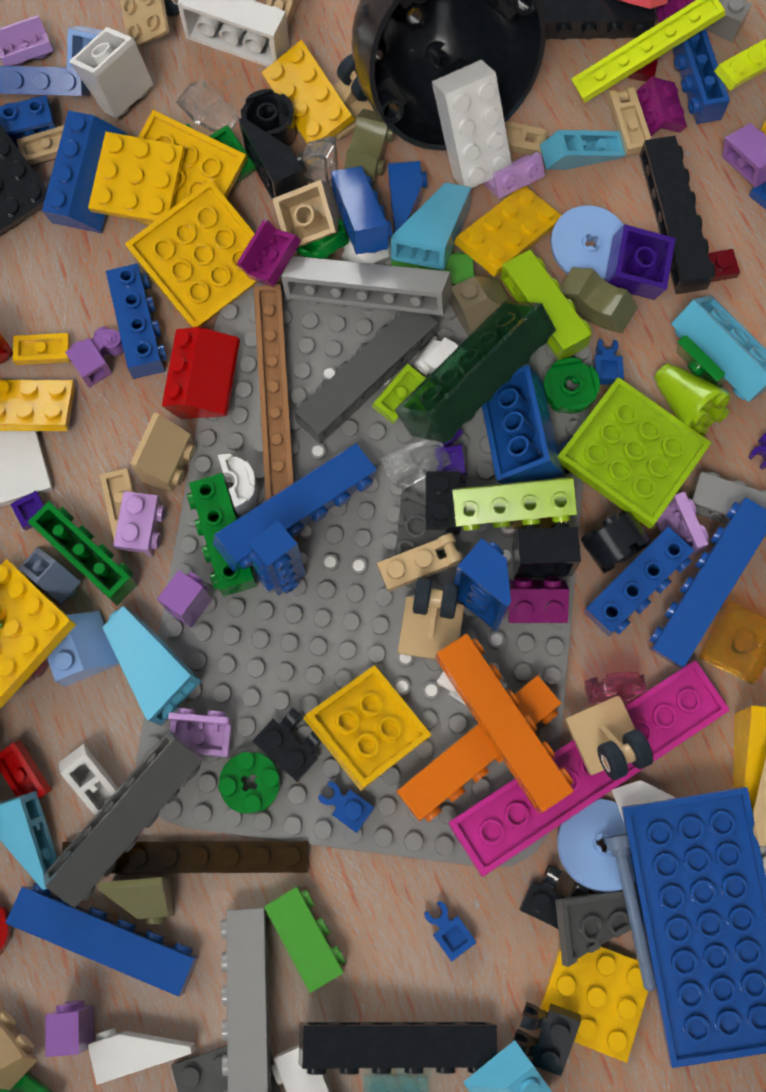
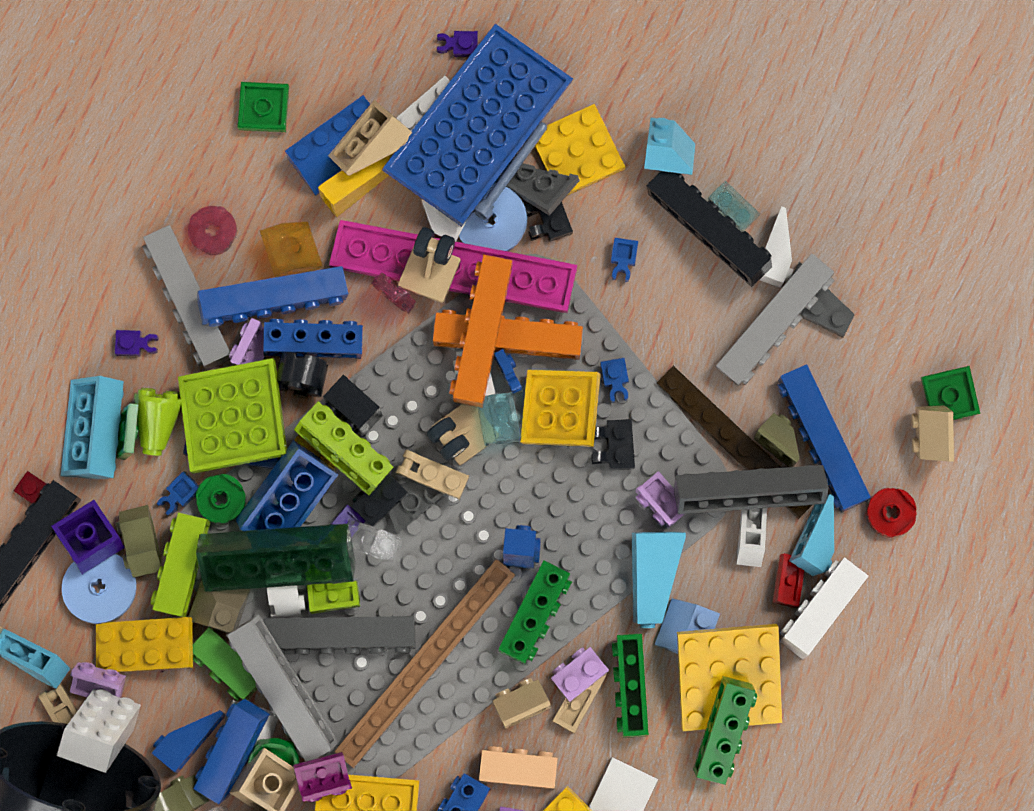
camera: 135 degrees left, 5 degrees up
(26, 508) = (639, 753): dark purple plate -> none
(50, 575) = (665, 695): sand blue slope -> none
(69, 1029) = (882, 403): medium lavender brick -> none
(120, 407) = (518, 768): none -> light nougat brick
(131, 1052) = (862, 363): white slope -> none
(185, 597) = (595, 588): medium lavender brick -> none
(200, 373) = (445, 738): red slope -> none
(231, 783) = (652, 457): green plate -> none
(245, 487) = (488, 631): white cylinder -> none
(298, 504) = (474, 580): blue brick -> none
(305, 938) = (707, 330): bright green brick -> none
(411, 666) = (499, 419): none -> clear light blue plate
(432, 230) = (198, 689): medium azure slope -> none
(453, 720) = (506, 366): none -> blue plate
(484, 583) = (411, 415): blue slope -> none
(538, 600) = (384, 386): magenta bracket -> none
(555, 1039) = (622, 149): black plate -> none

